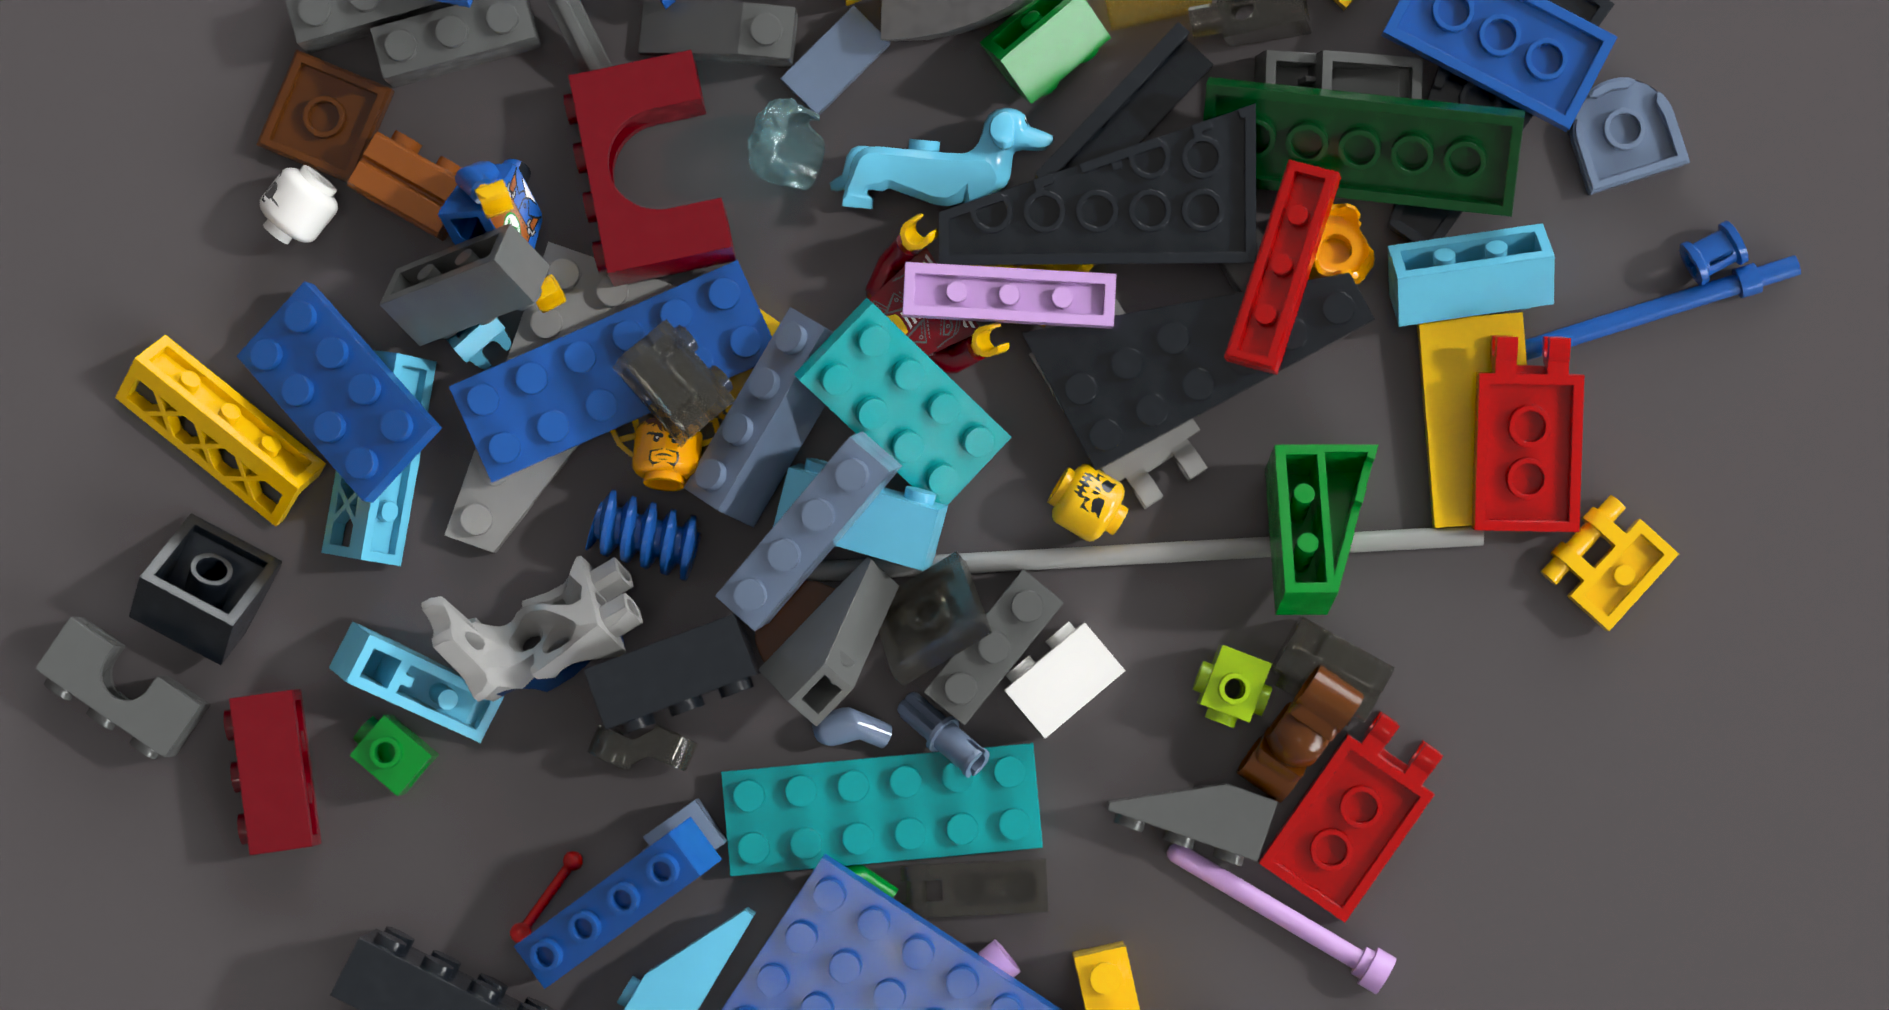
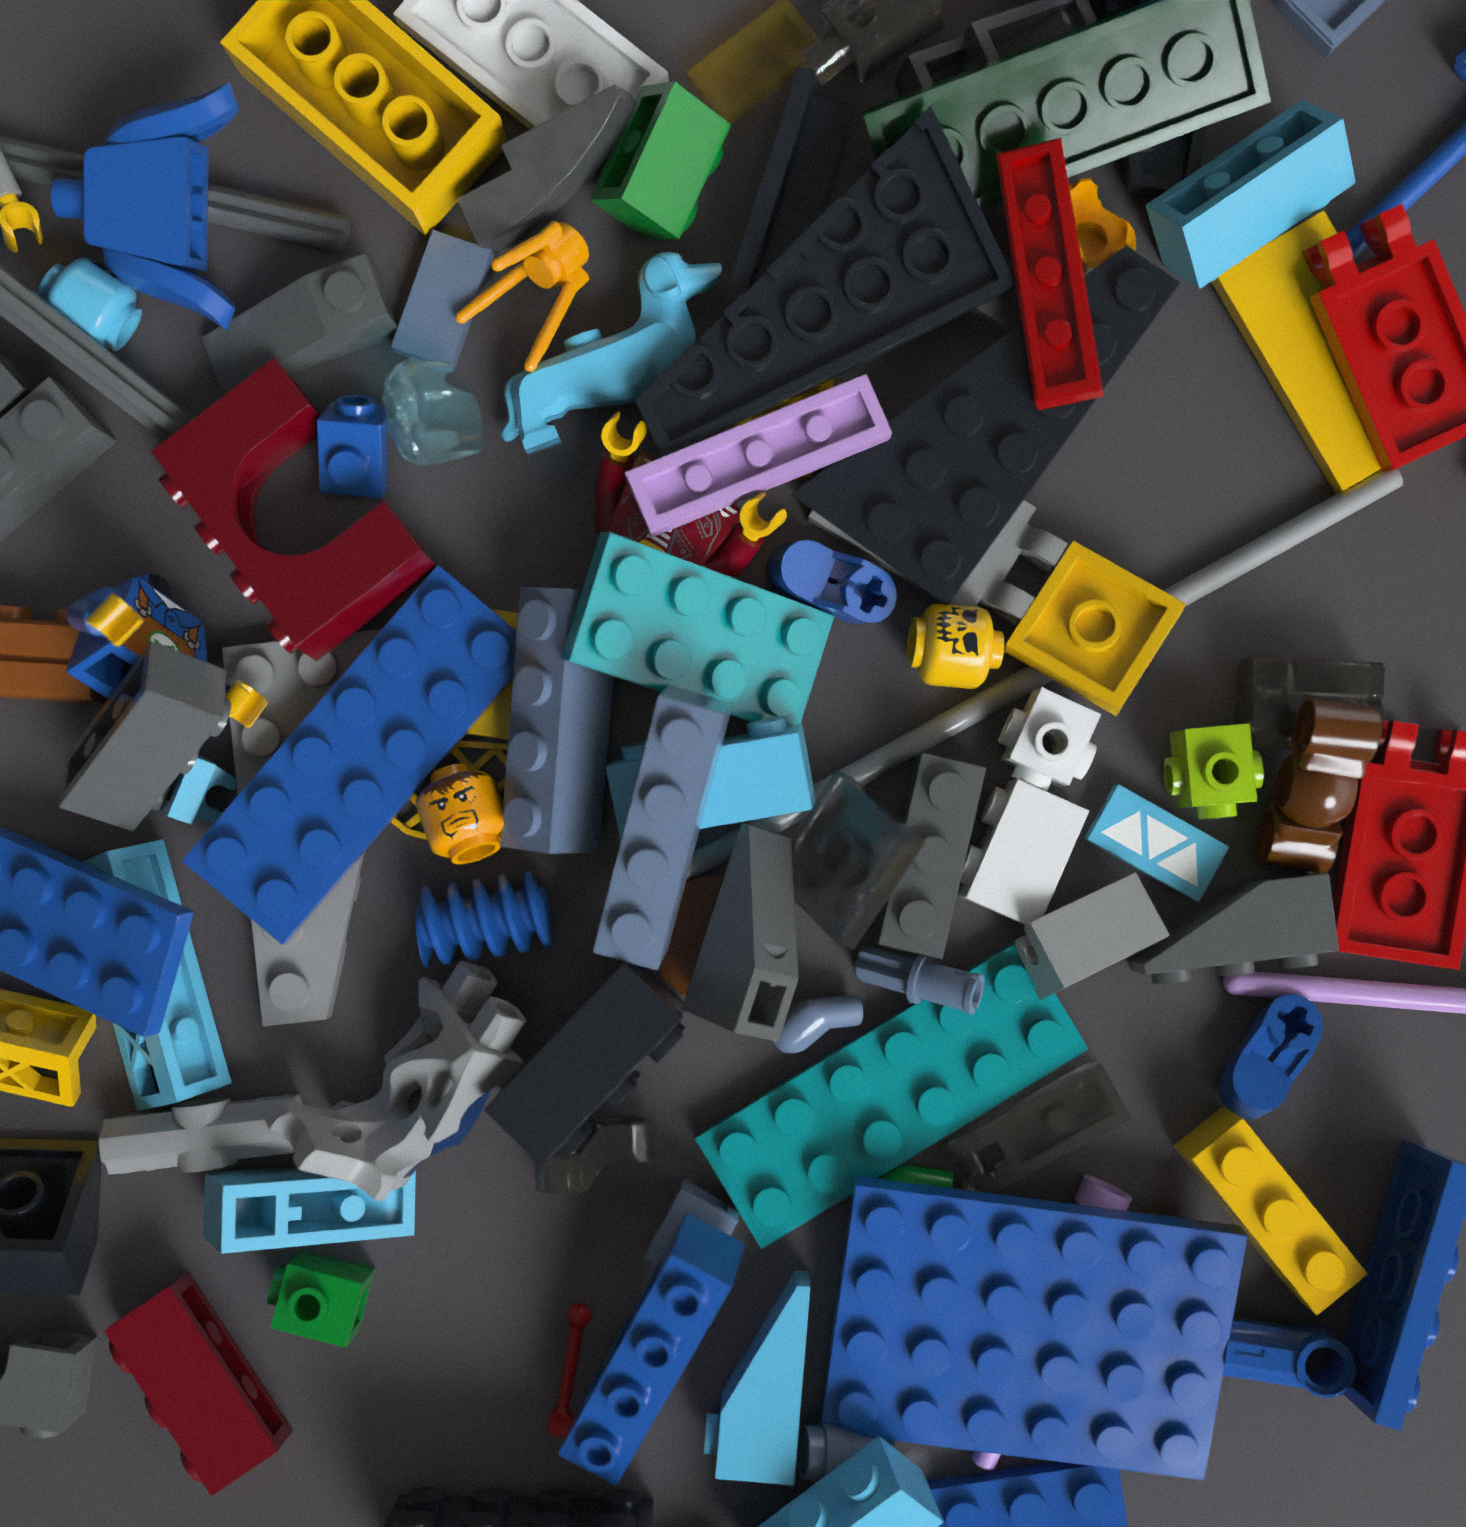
camera: 30 degrees left, 0 degrees up
(359, 592) = (192, 1135): none -> light grey piece
(675, 381) = (430, 731): clear smoke brick -> none
(717, 139) = (353, 447): none -> blue bracket
(927, 72) = (550, 260): none -> light orange plant
(1038, 429) = (860, 591): none -> blue piece
(1082, 763) = (1089, 935): none -> light grey hinge
(1142, 601) = (1069, 730): none -> white brick
(1168, 721) = (1156, 843): none -> medium azure tile
(1193, 903) = (1290, 1031): none -> blue piece
(1196, 539) = (1094, 628): none -> yellow plate
(1312, 520) = (1216, 545): green wedge -> none

